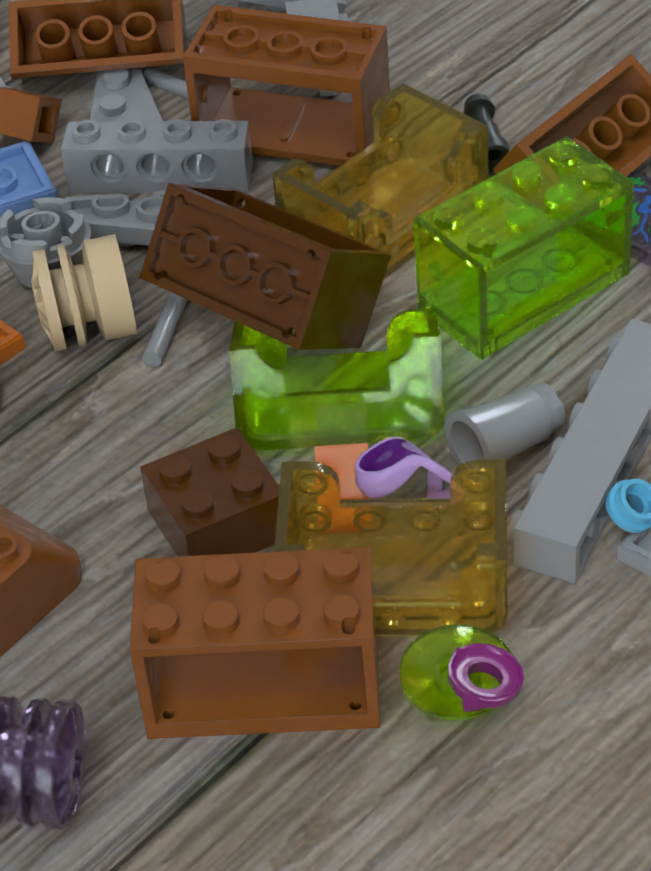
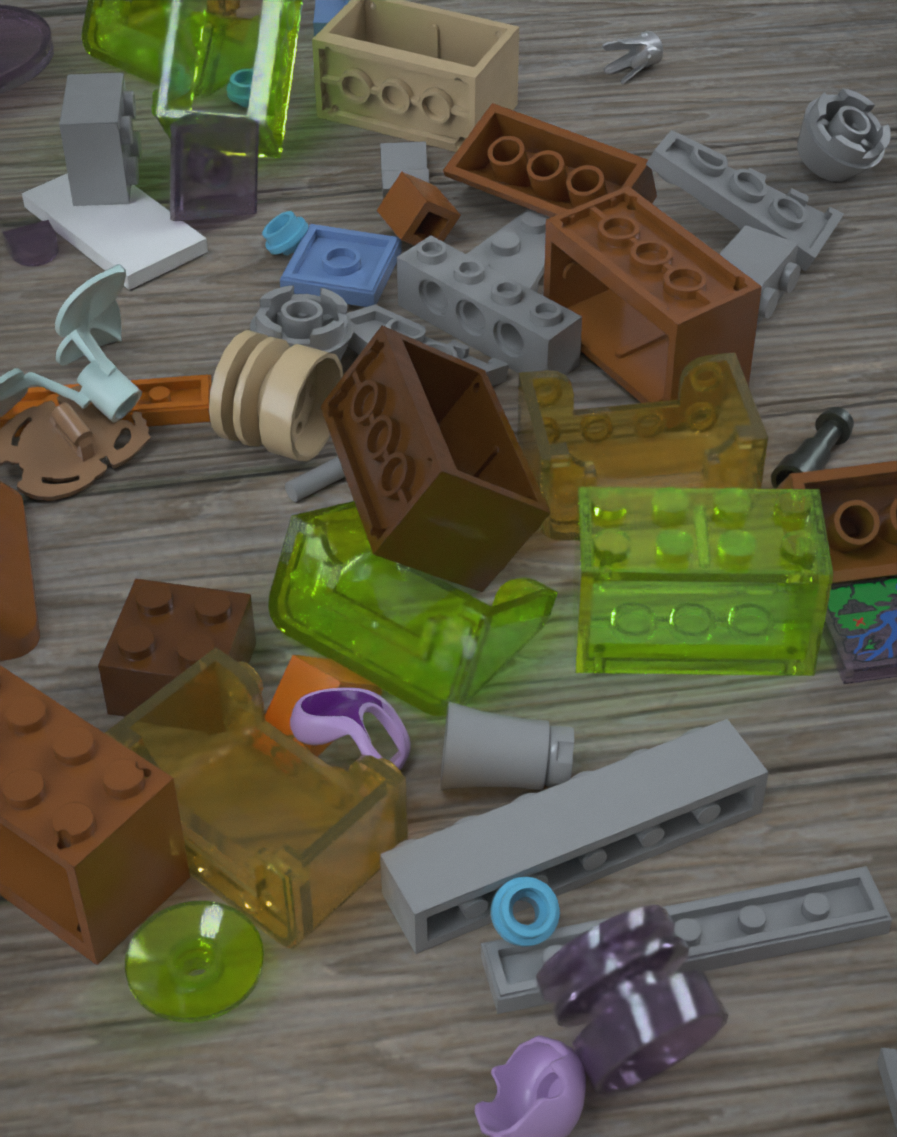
camera: 35 degrees right, 0 degrees up
(486, 659) = (200, 956): magenta piece -> none

